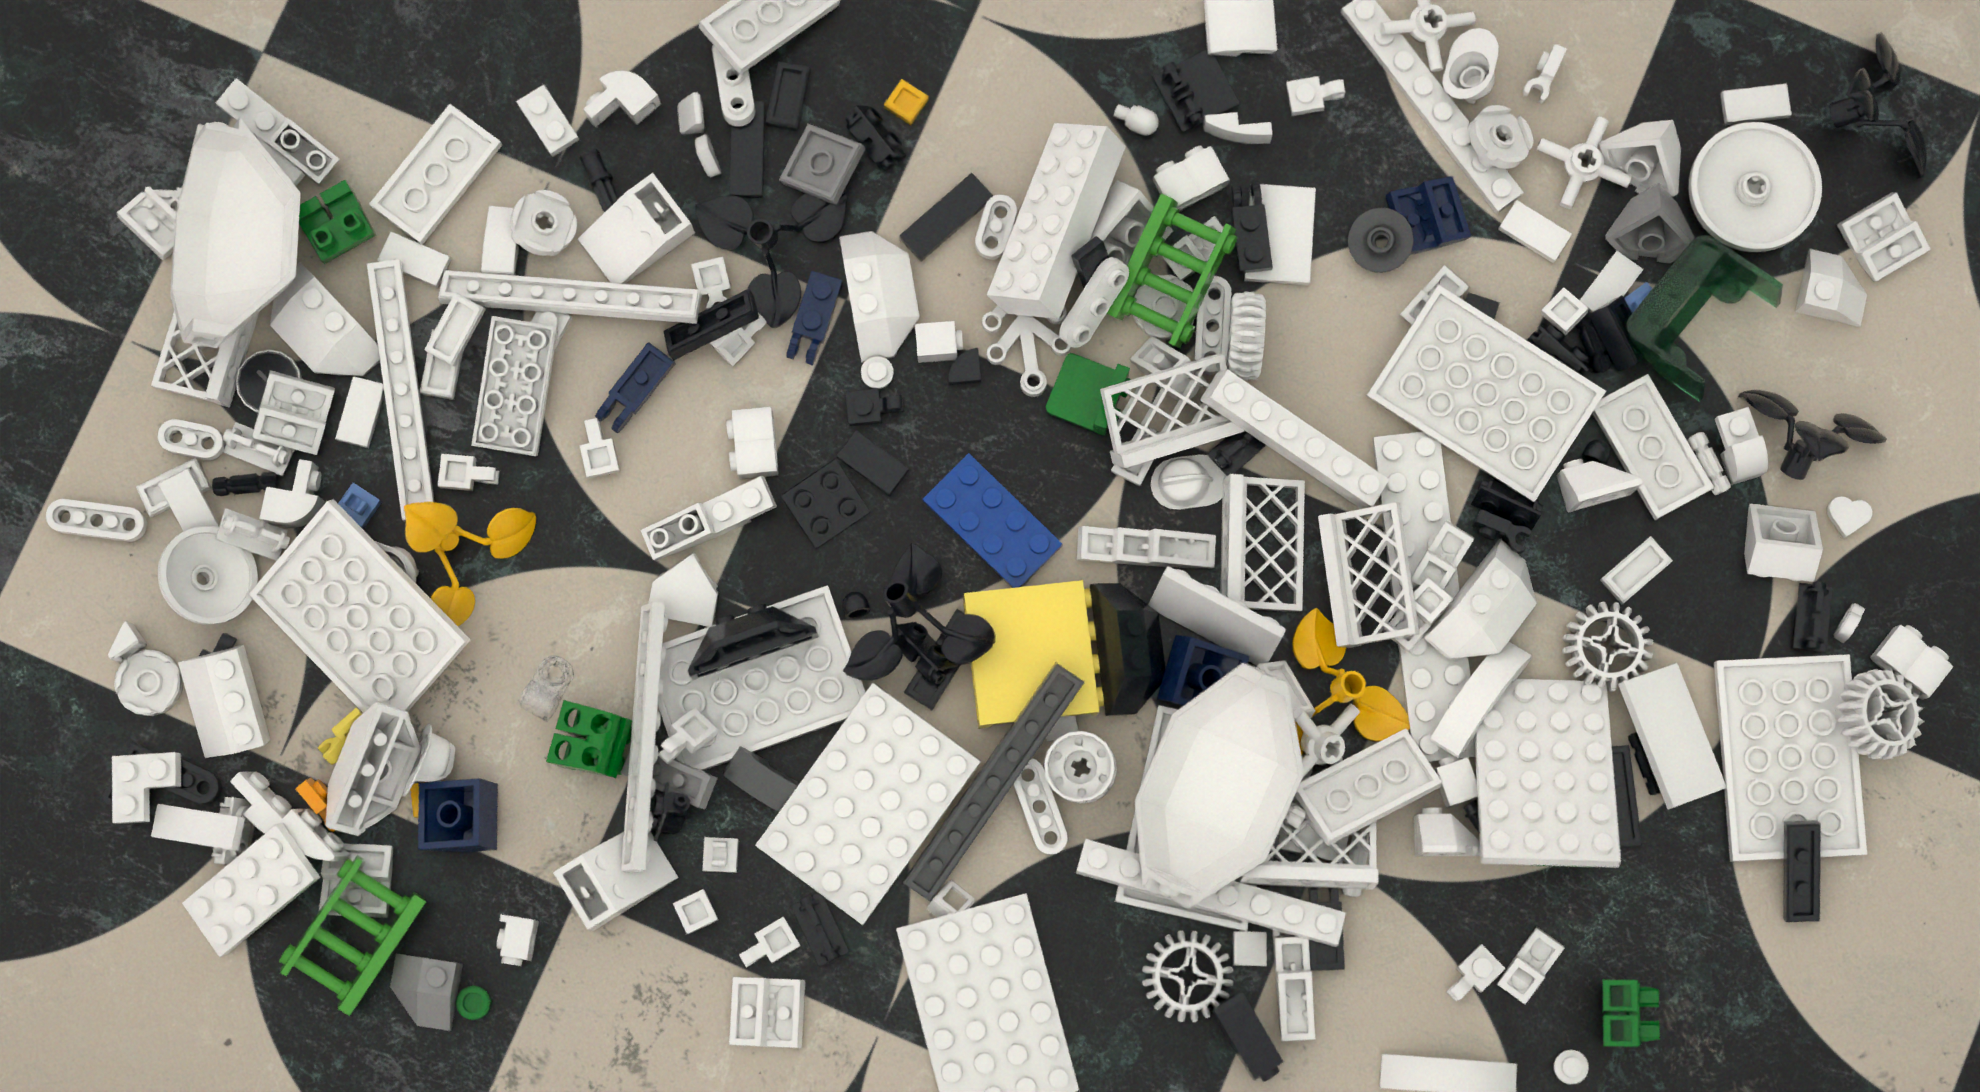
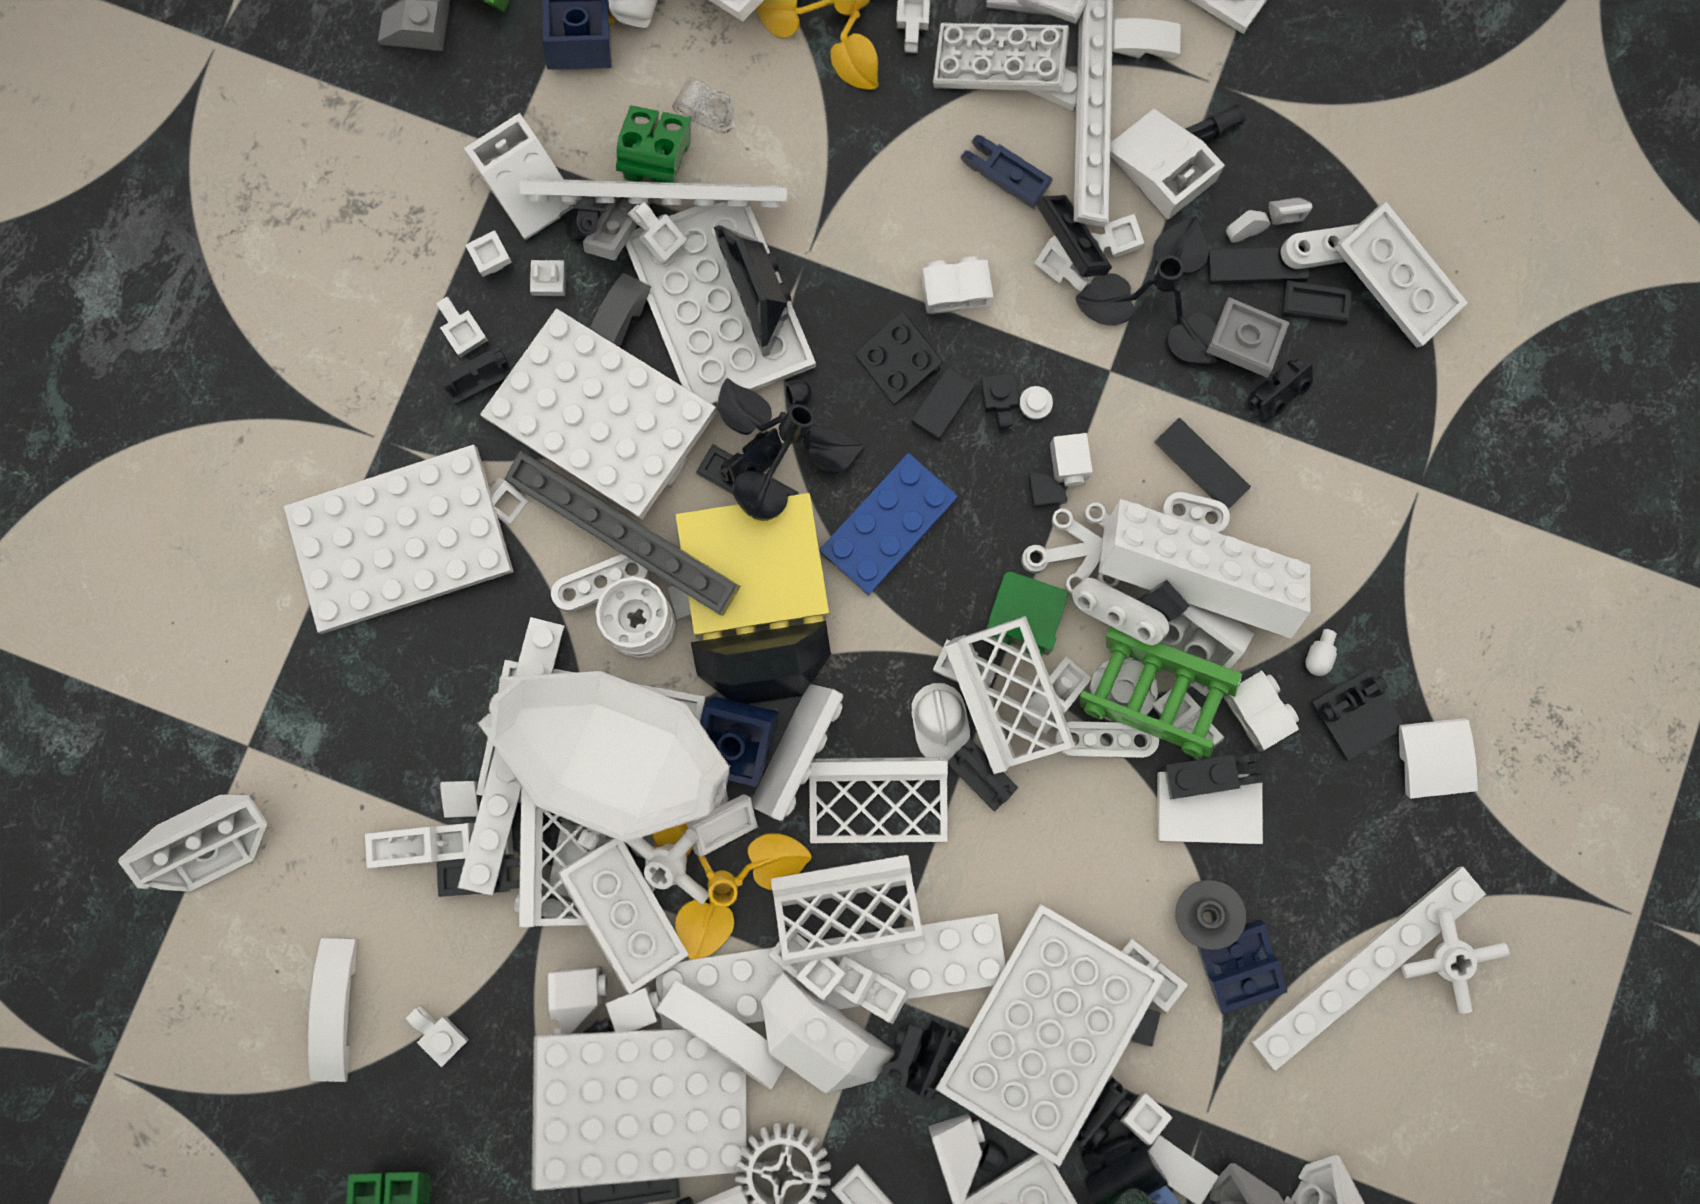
camera: 85 degrees right, 0 degrees up
(473, 1002) = (404, 61): green tile -> none
(517, 939) = (462, 93): white brick -> none
(527, 231) = (1183, 64): white plate -> none
(547, 120) = (1271, 74): white plate -> none
(599, 454) = (937, 140): white plate -> none
(624, 91) = (1305, 138): white brick -> none
(687, 592) = (802, 229): white slope -> none
(708, 520) = (876, 245): white slope -> none
(767, 1012) = (395, 329): white slope -> none
(815, 314) = (1090, 339): dark blue hinge -> none
(879, 293) = (1117, 398): white wedge -> none
(906, 102) = (1320, 419): yellow tile -> none
(1146, 547) = (869, 679): white slope -> none
(1192, 947) = (430, 723): white gear -> none
(1228, 128) = (1321, 746): white slope -> none
(1246, 335) = (1095, 772): white gear -> none
(1247, 1037) = (368, 796): black slope -> none
(1294, 439) = (986, 826): white brick -> none
(1308, 95) = (1363, 833): white plate -> none
(1471, 65) = (1412, 1009): white piece -> none
(1490, 148) = (1322, 1031): white plate -> none
(1530, 965) = (446, 1094): white slope -> none
(1535, 231) = (1233, 1084): white tile -> none
(1548, 65) = (1418, 1095): white plate -> none
(1571, 1066) = (340, 1139): white plate -> none
(1573, 161) = (1313, 1150): white bar -> none

